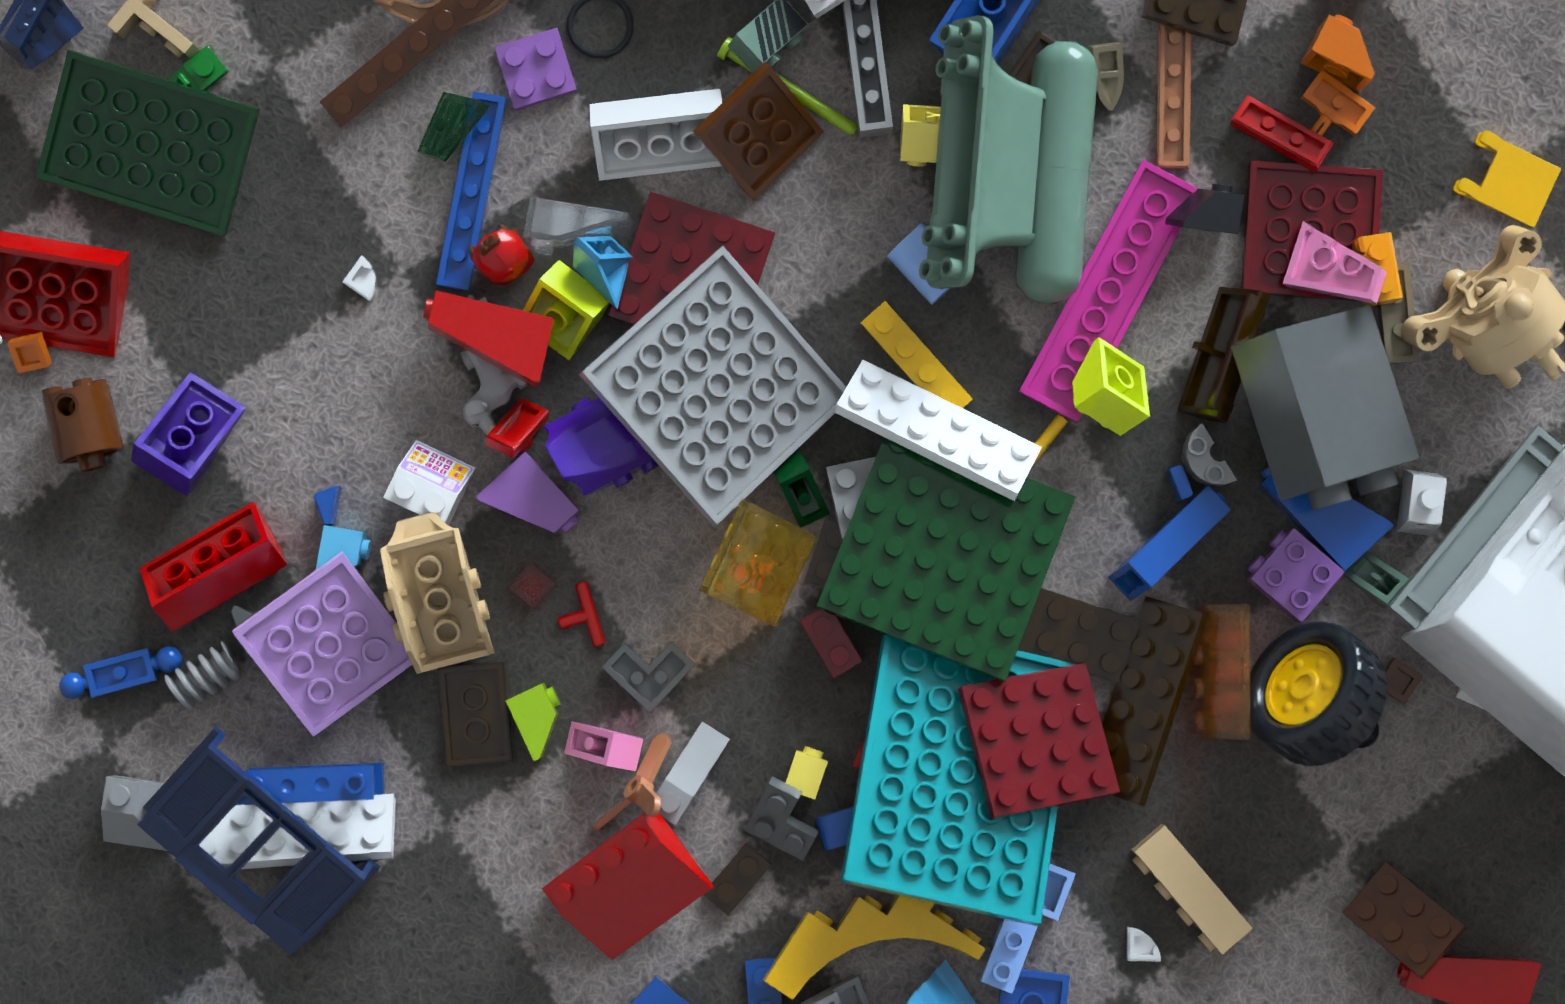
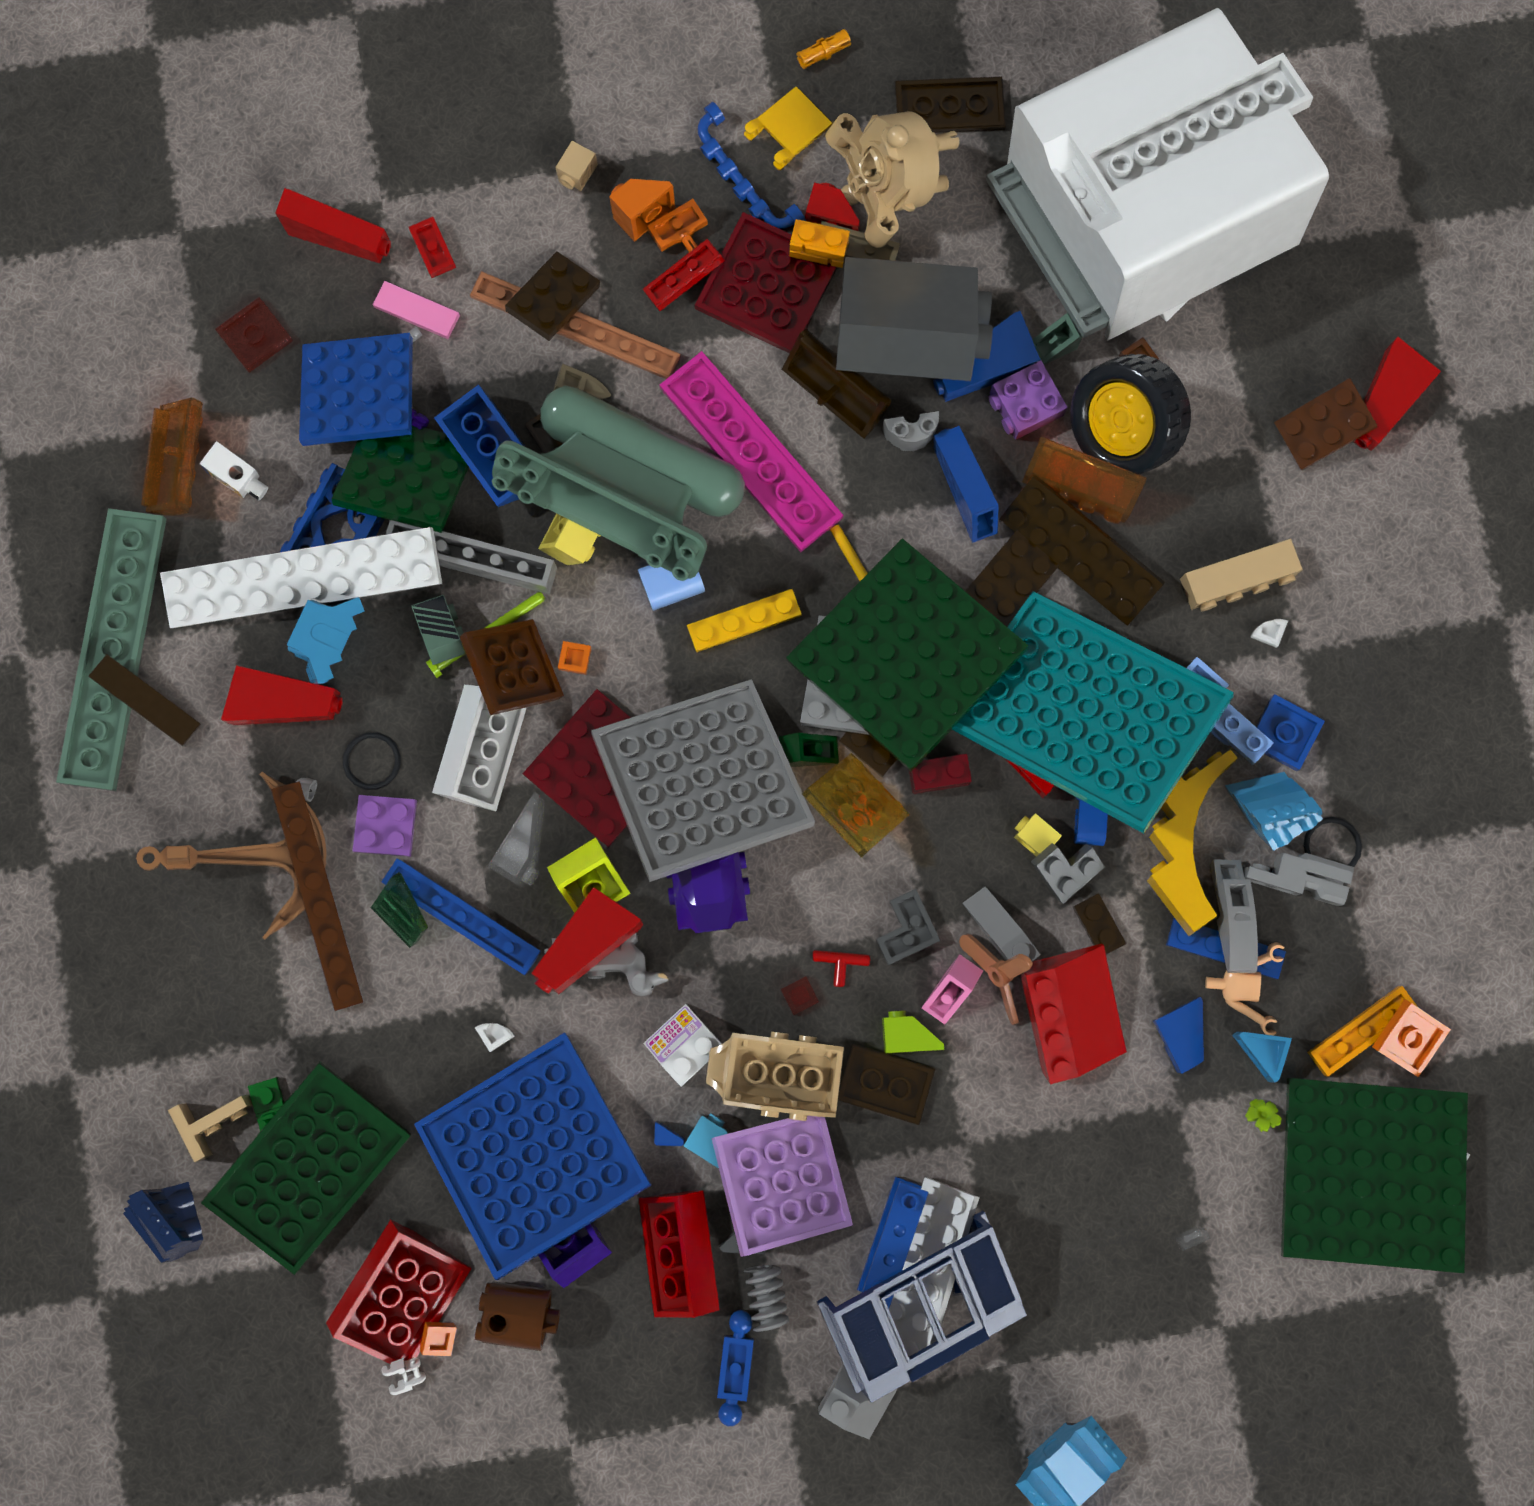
camera: 75 degrees left, 5 degrees down
(252, 371) = (531, 1156): none -> blue plate
(502, 256) = (524, 911): red hair -> none
(516, 429) = (669, 955): red tile -> none
(531, 496) = (728, 966): medium lavender slope -> none
(602, 264) = (566, 834): dark azure slope -> none
(799, 194) = (574, 657): none -> orange plate
(937, 429) = (807, 622): white plate -> none
(1038, 741) = (1084, 641): dark red plate -> none
(1111, 388) = (829, 478): neon yellow slope -> none
(1179, 482) = (922, 457): blue tile -> none
(1210, 210) = (720, 349): black slope -> none
(1332, 269) = (805, 274): bright pink wing -> none
(1413, 157) = (728, 169): none -> blue bar
(1421, 502) = (1010, 284): white torso -> none
(1430, 263) = (830, 206): none -> red slope

